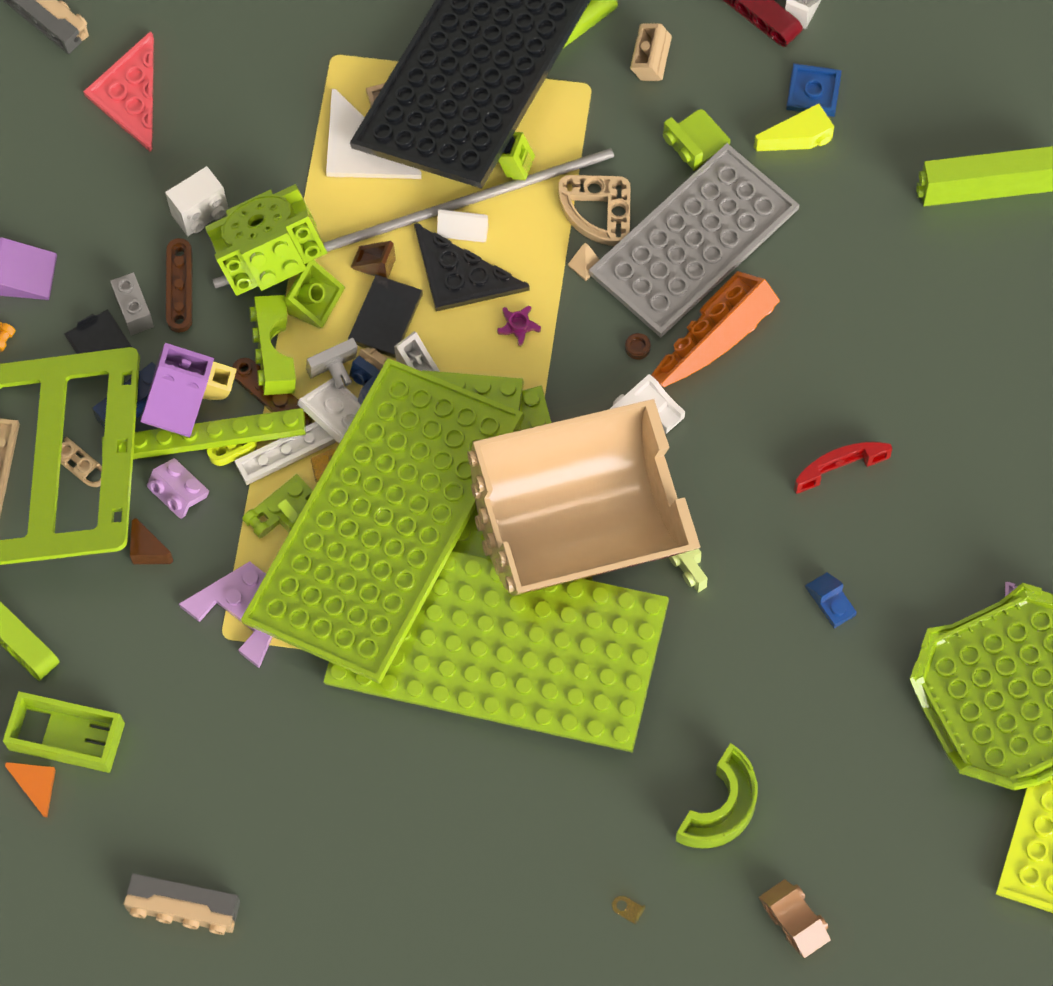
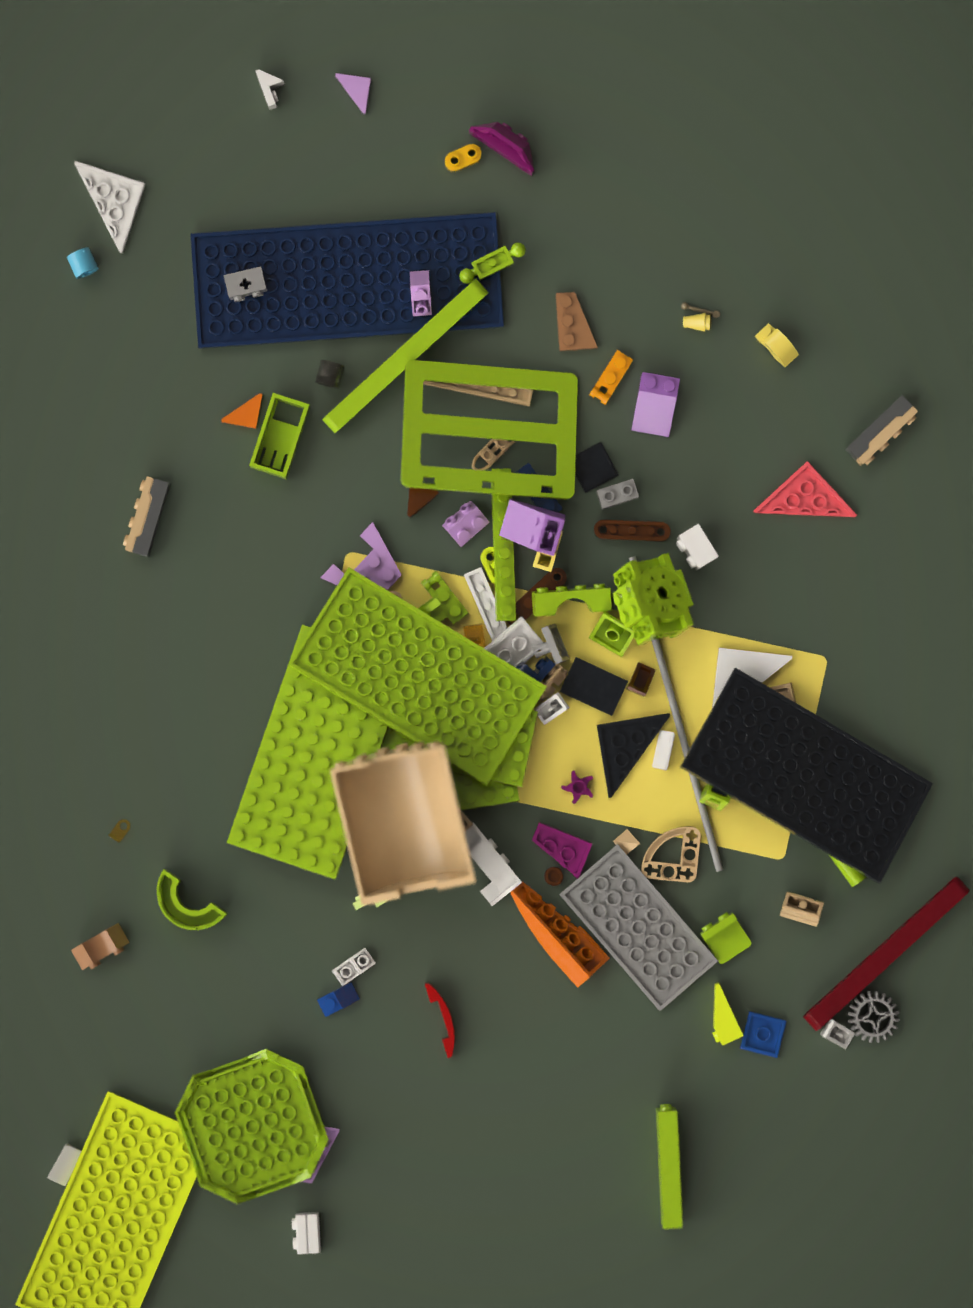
camera: 90 degrees right, 20 degrees up
(599, 335) = (563, 847): none -> magenta wing
(784, 583) = (353, 966): none -> white slope

